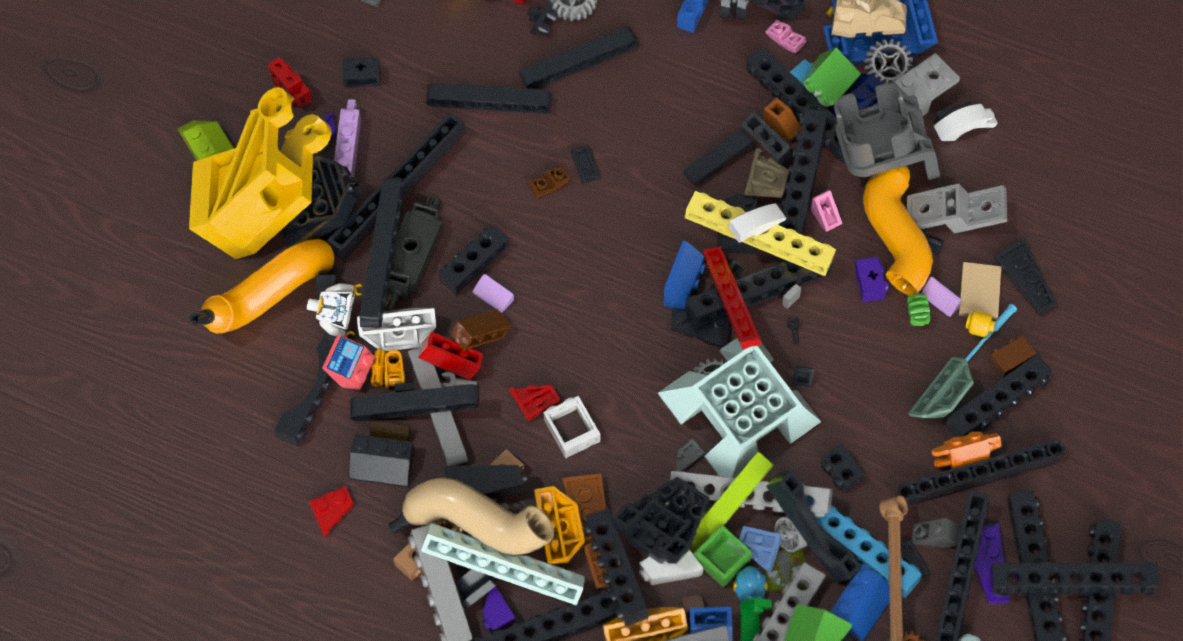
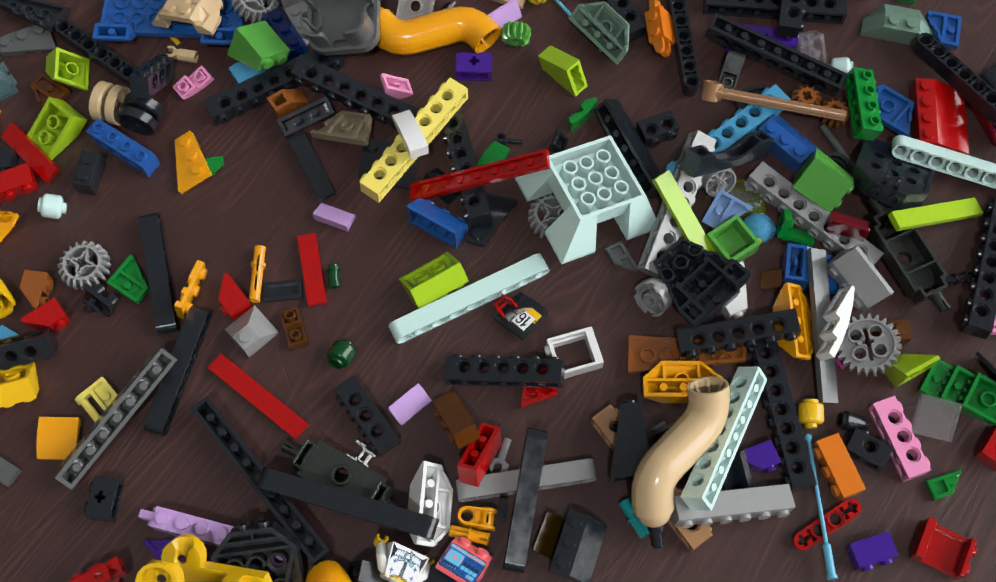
camera: 80 degrees left, 5 degrees up
(409, 24) = (57, 437): none -> light orange slope
(432, 261) = (371, 454): none -> white piece
(433, 58) = (114, 417): none -> dark grey brick
(451, 50) = (101, 392): none -> light yellow plate
(477, 168) = (258, 396): none -> red tile
(530, 225) = (341, 354): none -> dark green head
(535, 351) = (512, 378): none -> black brick
(538, 147) = (251, 331): none -> light grey slope
(561, 86) = (188, 293): none -> light orange wing
(567, 37) = (129, 281): none -> green wing
(567, 123) = (232, 298): none -> red slope
(596, 138) = (259, 253): none -> light orange pin
(602, 374) = (523, 318): none -> slope
(606, 351) = (509, 300): none -> red piece
(608, 202) = (333, 276): none -> dark green pin
(611, 183) = (312, 270): none -> red tile
(611, 324) = (468, 298): none -> light aqua beam
(621, 288) = (434, 280): none -> lime slope
(646, 485) = (653, 296): none -> light grey cylinder
(671, 189) = (334, 217): none -> lavender slope
(697, 56) = (190, 162): none -> light orange wing
(701, 75) = (215, 163): none -> green tile
(770, 316) = (494, 153): none -> green slope
(791, 296) = (476, 134): light grey tile -> none
(814, 20) = (183, 54): none -> tan bar
(815, 439) = (619, 126): none -> black brick
(847, 395) = (586, 110): none -> green slope
(888, 364) = (563, 69): none -> lime slope
(926, 620) = (806, 95): none -> dark orange gear
(986, 617) = (813, 44): none -> clear slope

